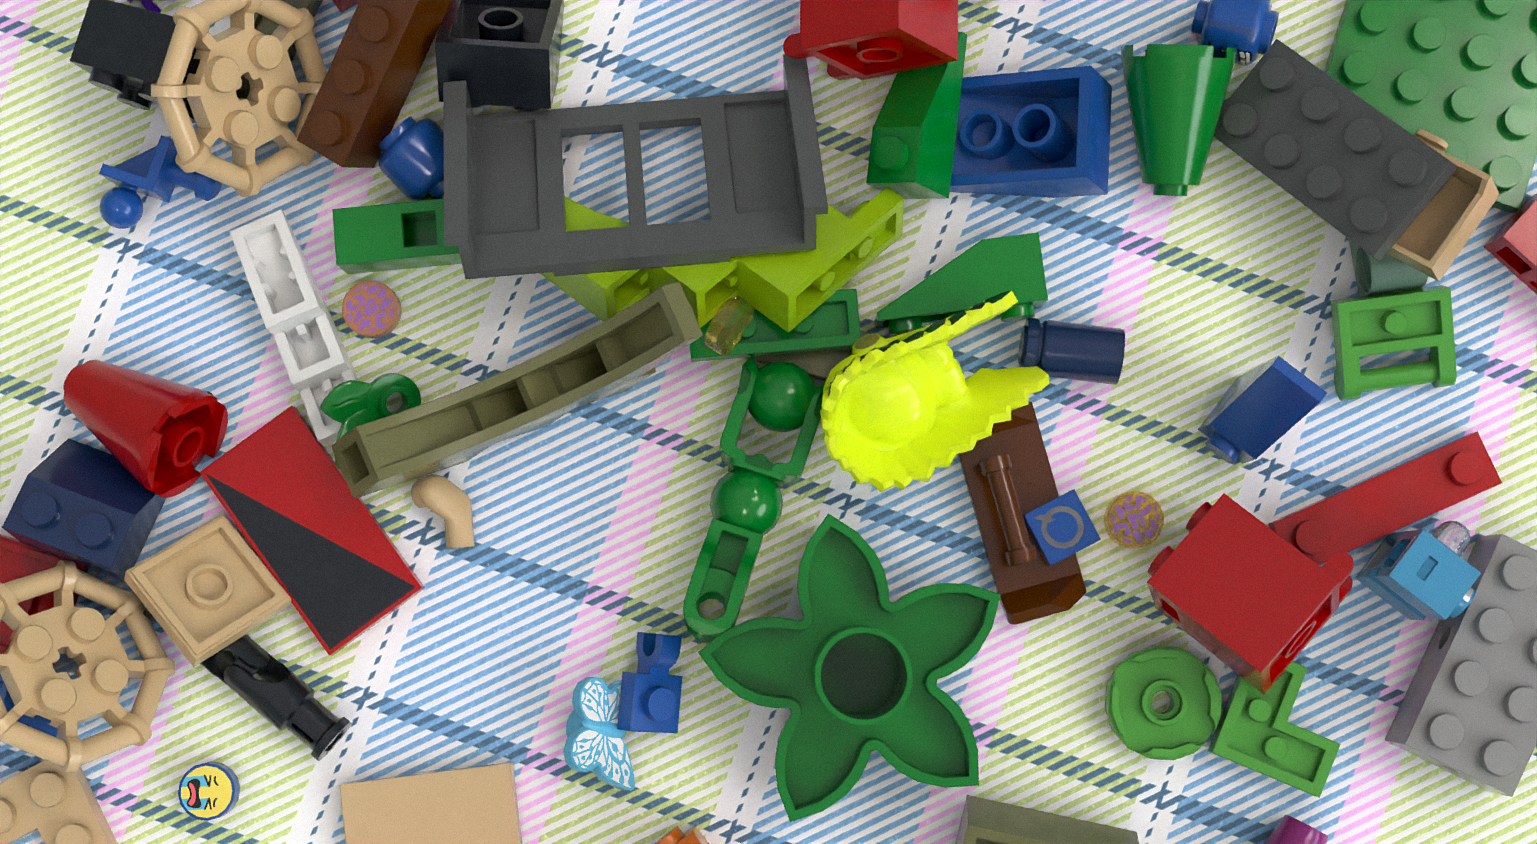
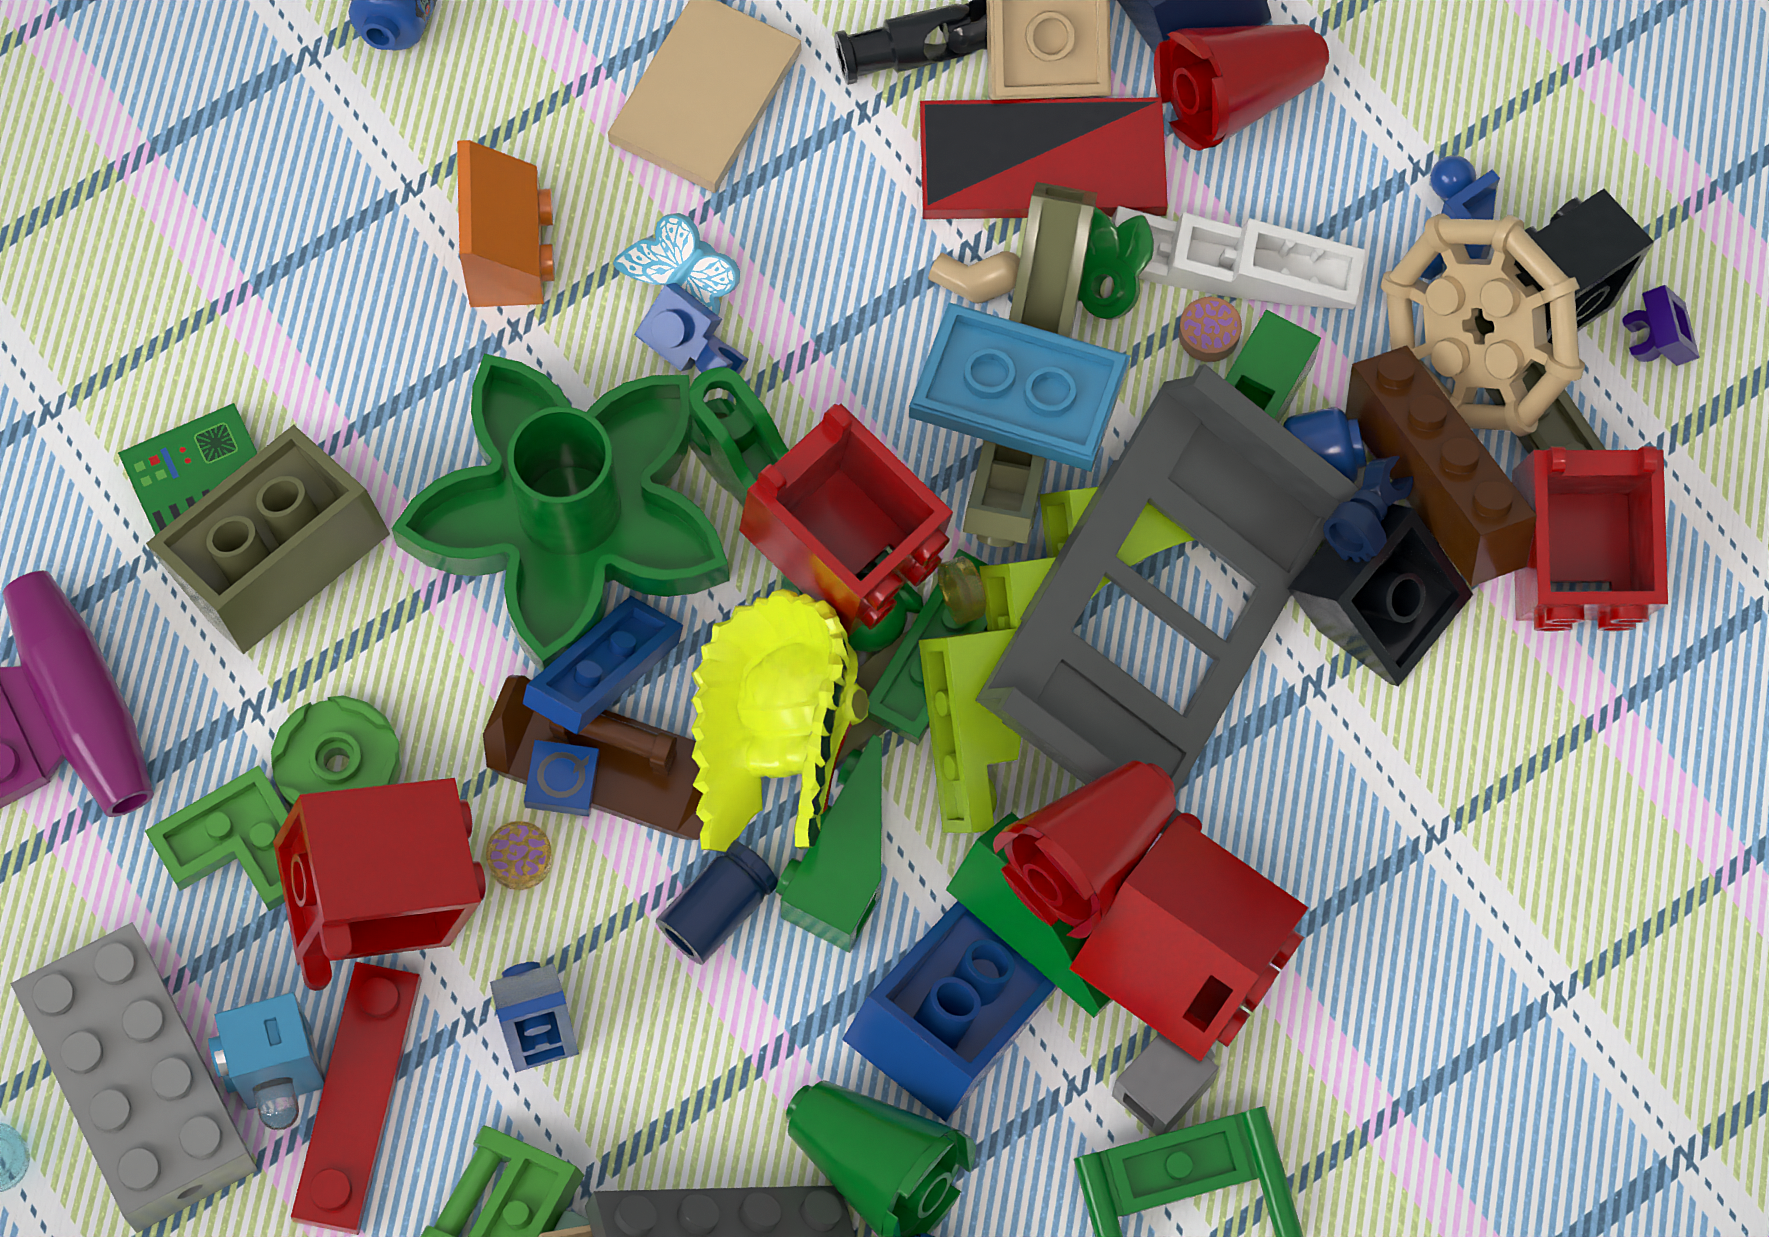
camera: 120 degrees right, 15 degrees down
(481, 72) = (1355, 524): none -> dark blue piece
(540, 389) = (1019, 386): none -> dark azure tile
(748, 454) = (836, 510): none -> red container
(872, 85) = (1086, 844): none -> red cone
(967, 552) = (602, 664): none -> blue plate

